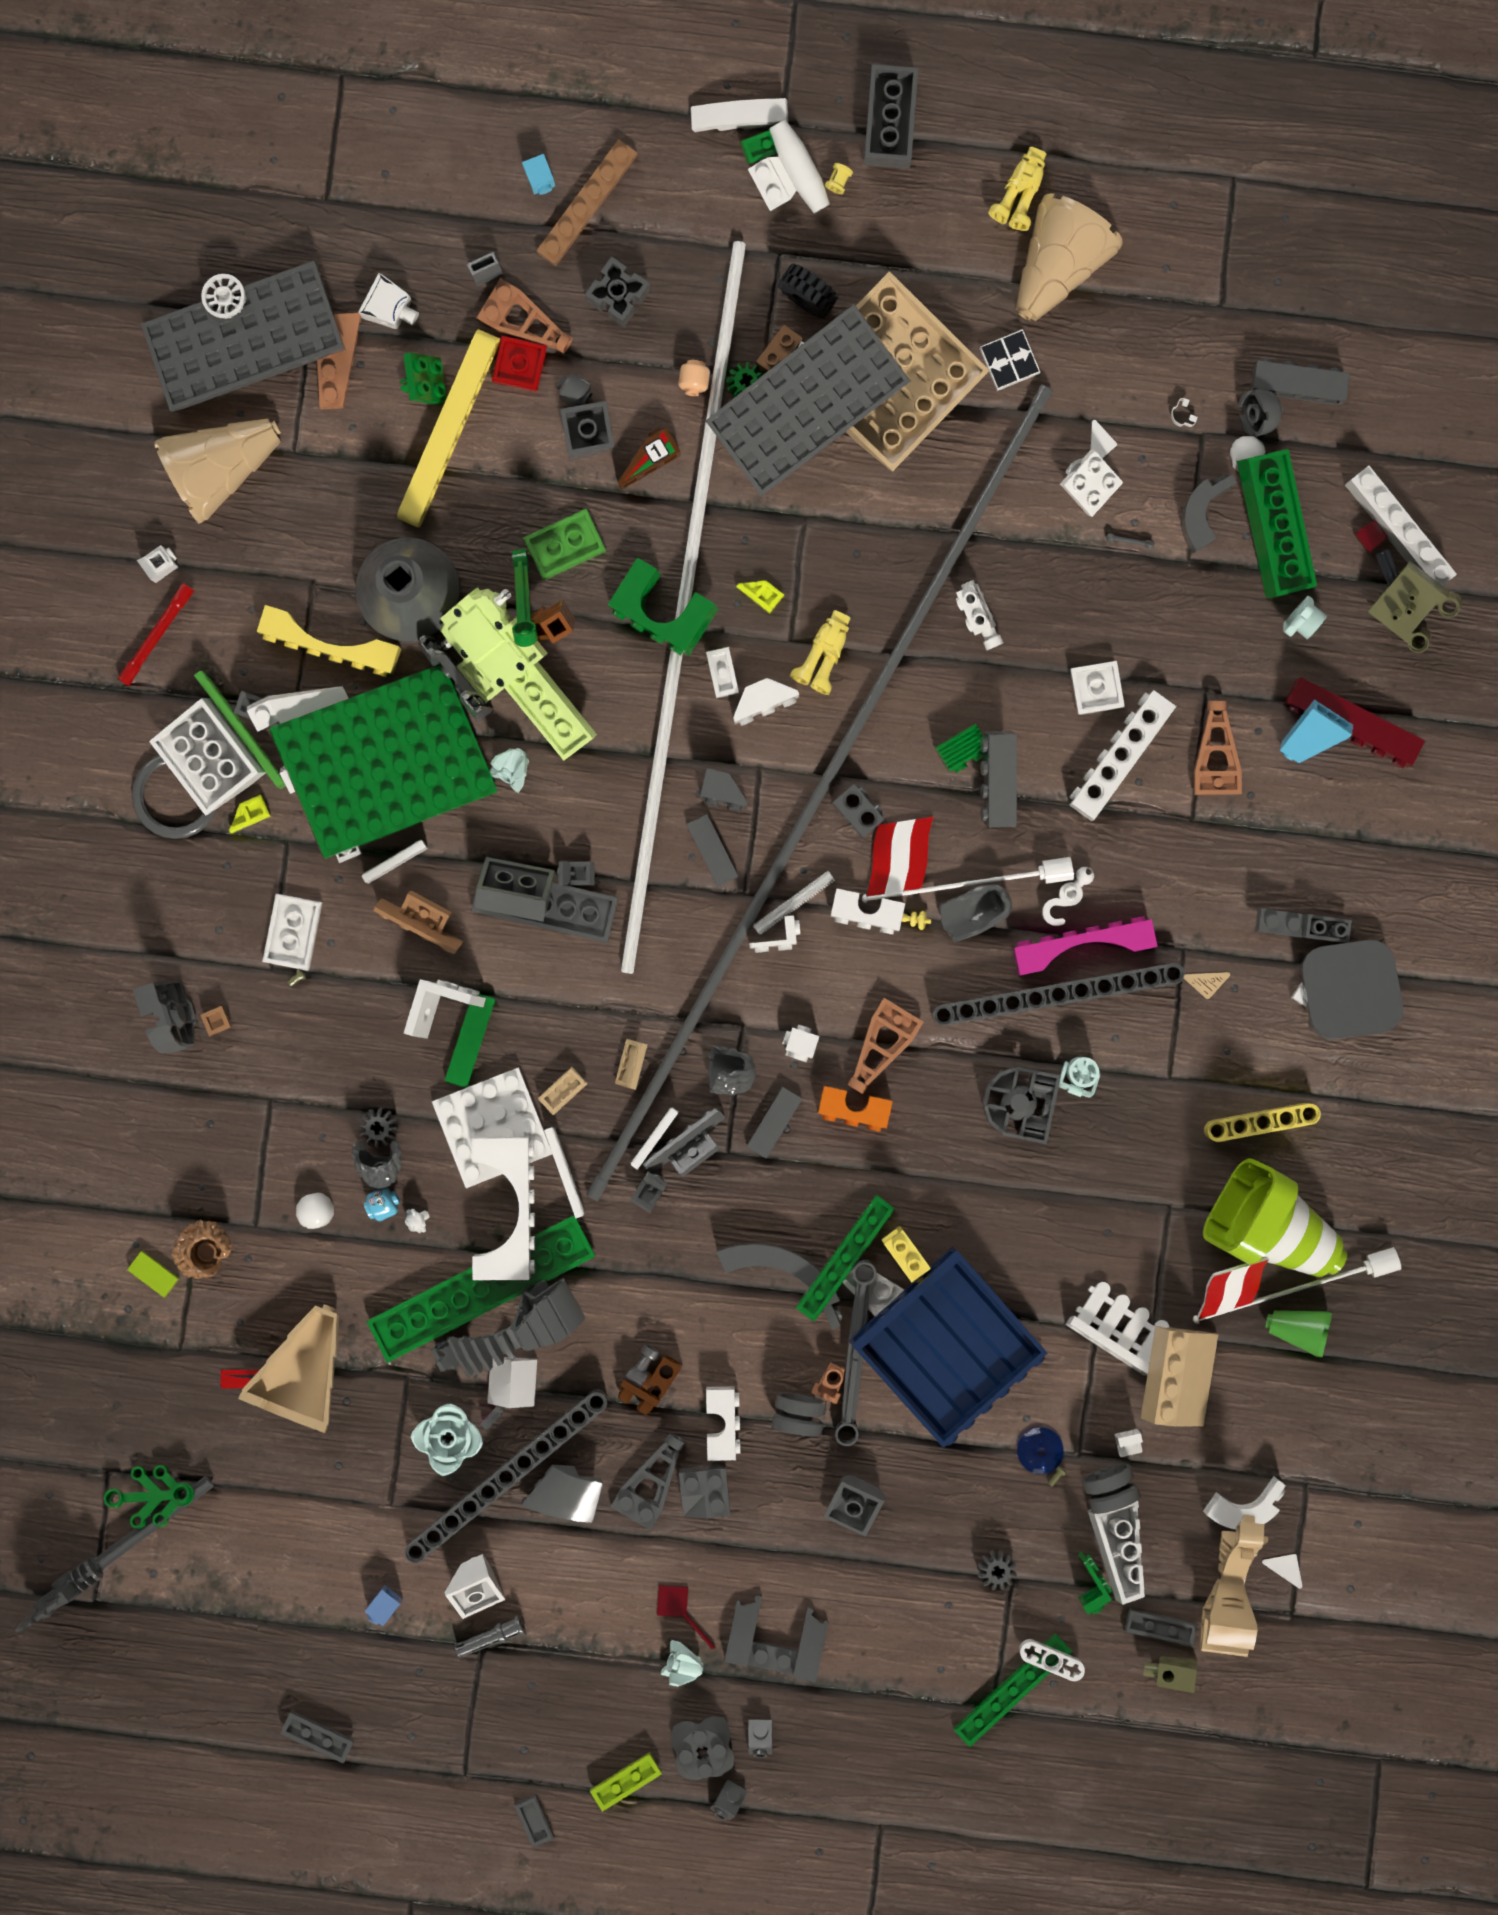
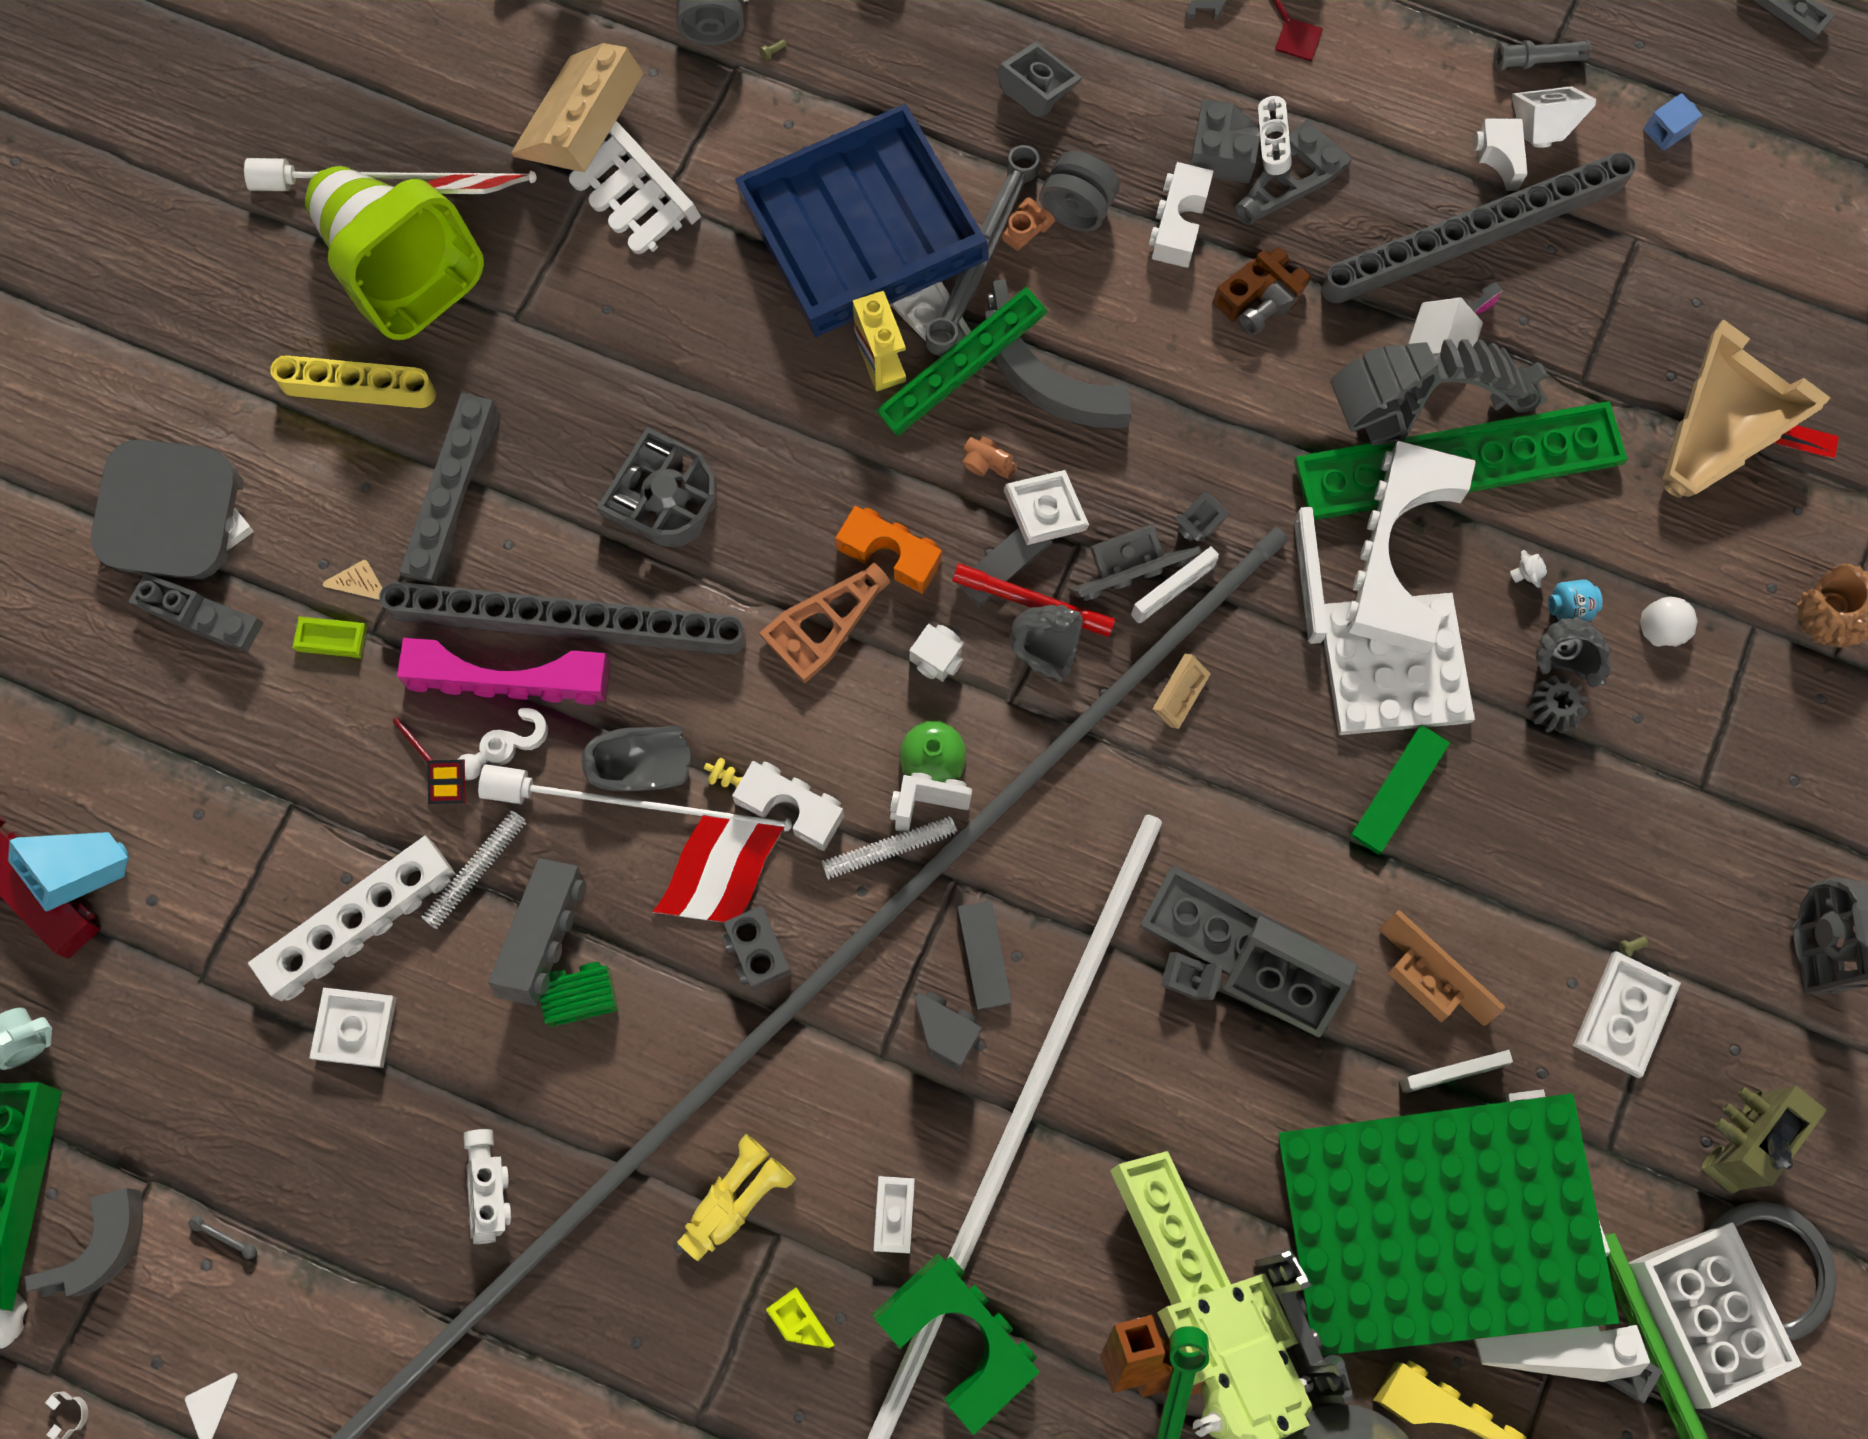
camera: 165 degrees left, 15 degrees down
(198, 868) = (1767, 1139): none -> olive piece
(216, 1021) = (1764, 916): medium nougat plate -> none
(250, 813) = (1658, 1210): neon yellow tile -> none
(427, 1000) = (1427, 859): white bracket -> none
(447, 1456) = (1557, 271): light aqua brick -> none
(503, 1548) = (1503, 148): none -> white arch
(511, 767) = (1250, 1161): light aqua brick -> none
(562, 1091) = (1286, 683): tan plate -> none
(565, 1494) = (1411, 185): dark grey slope -> none
(662, 1501) = (1280, 144): none -> white beam
(757, 1169) = (1046, 507): none -> white tile
(762, 699) = (846, 1155): white slope -> none
(783, 972) = (933, 750): none -> bright green cylinder
(786, 1100) = (982, 581): none -> red piece
(810, 1194) = (985, 455): none -> nougat plate
(1034, 1440) = (787, 93): clear blue dish -> none
(1056, 810) = (473, 870): none -> white axle
(1082, 1073) = (567, 506): light aqua piece -> none
(1090, 482) = (244, 1346): white plate -> none
(1097, 863) = (445, 777): none -> piece
(1128, 1442) = (668, 58): white bracket -> none
(1166, 1060) = (434, 532): none -> dark grey arch
(1210, 937) = (330, 637): none -> lime tile
(1217, 782) = (234, 842): nougat plate -> none
(1301, 1328) = (399, 122): bright green cone -> none

